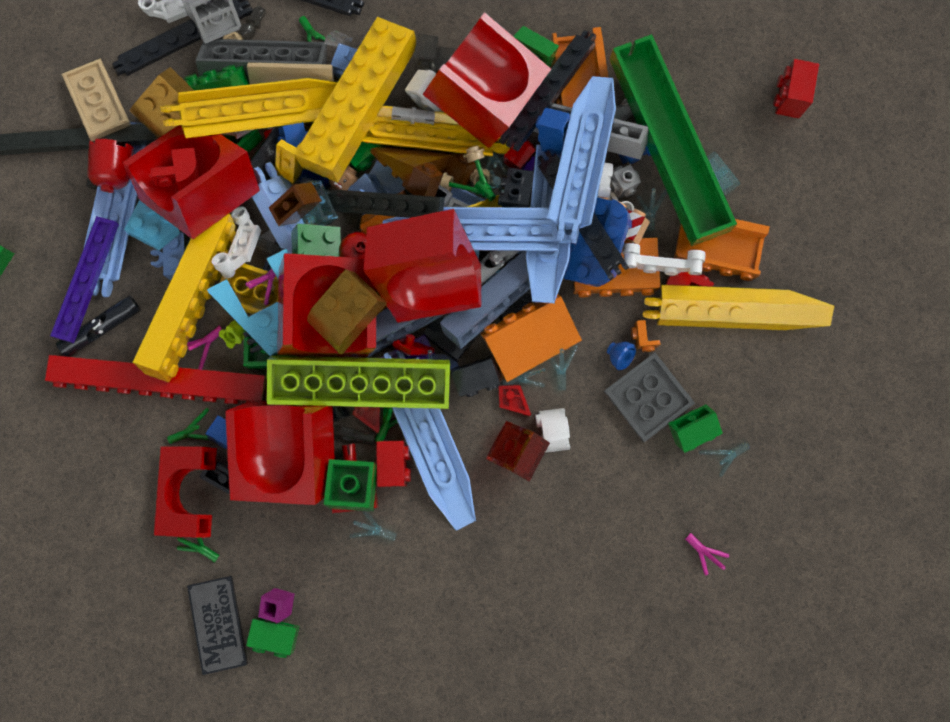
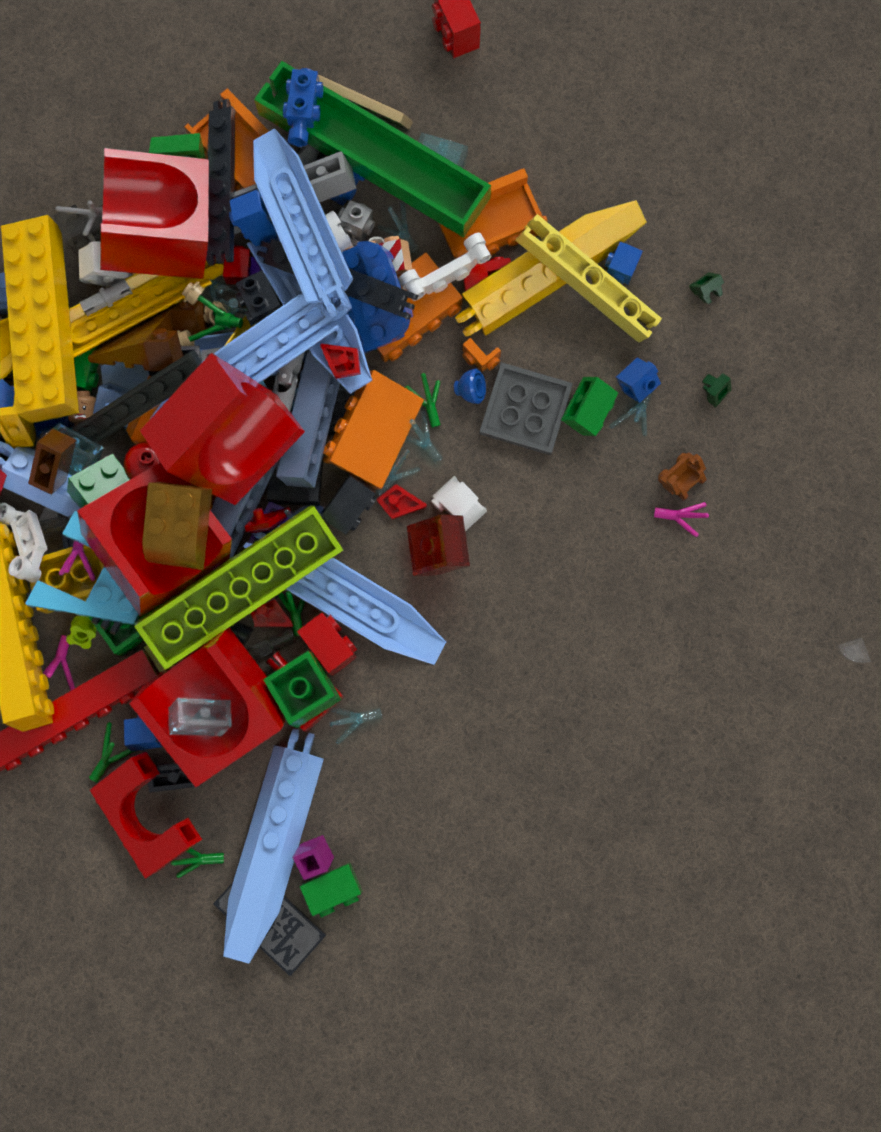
camera: 30 degrees left, 0 degrees up
(252, 576) = (270, 847): none -> light blue hinge
(266, 454) = (199, 717): none -> clear light blue brick
(445, 50) = (92, 213): none -> light grey plant
(543, 274) = (342, 360): none -> red piece
(584, 345) = (430, 404): none -> green plant
(651, 65) = (302, 90): none -> blue brick
(690, 103) = (368, 104): none -> tan tile
(727, 525) = (683, 475): none -> dark orange piece
(744, 434) = (639, 379): none -> blue brick
(755, 321) = (574, 265): none -> light yellow piece
(792, 343) = (623, 262): none -> blue brick
(796, 480) = (716, 388): none -> dark green tile
(843, 401) = (707, 284): none -> dark green tile

